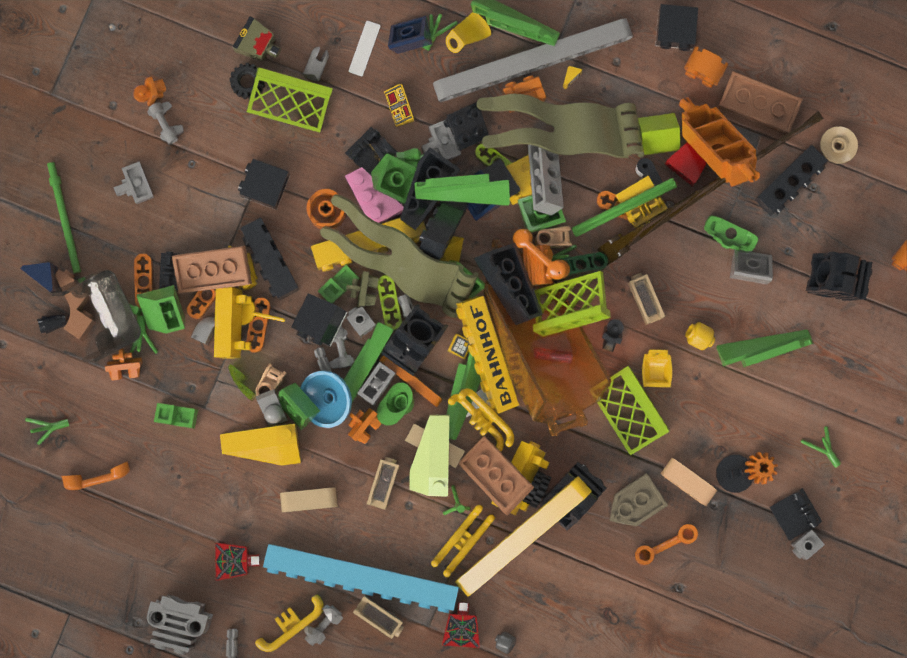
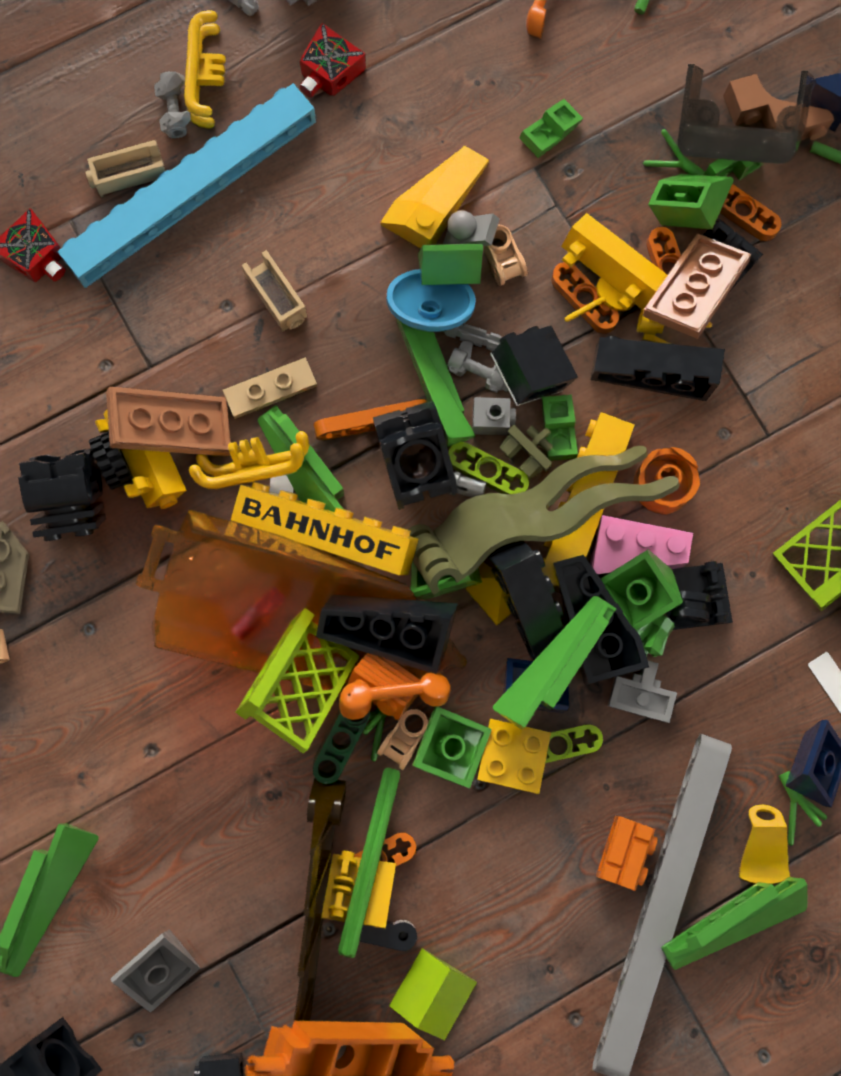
camera: 125 degrees right, 5 degrees down
(51, 323) = (774, 70): black cone -> none
(115, 367) = (662, 113): orange hips -> none
(204, 330) = (627, 229): light grey brick -> none
(239, 378) = (539, 224): clear neon green slope -> none
(264, 184) = (757, 432): black piece -> none
(308, 499) = (328, 196): tan beam -> none
(361, 422) = (369, 321): orange hips -> none
(376, 384) = (399, 370): light grey brick -> none
(395, 404) = (355, 375): bright green piece -> none
(399, 105) = (733, 679): slope -> none
(431, 460) = (252, 364): yellowish green wedge -> none
(458, 506) = (171, 351): bright green plant -> none
(459, 346) = (365, 506): slope -> none
(462, 540) = (130, 329): yellow piece -> none
(467, 126) = (639, 742): black hinge -> none
(499, 172) = (543, 730): black panel -> none
(523, 536) = (62, 392): beam -> none
(545, 180) = (494, 789): light grey brick -> none
(571, 75) = (602, 937): yellow slope -> none
(576, 126) = (524, 886): olive flag -> none
(612, 334) = (218, 706): black hips -> none
(645, 404) = (98, 680): lime fence -> none
(646, 298) = (231, 792): tan window -> none
(657, 369) = (129, 730): yellow piece -> none
(686, 164) = (361, 997): red torso -> none
(700, 336) = (125, 823): yellow head -> none
(717, 228) = (200, 989): bright green piece -> none

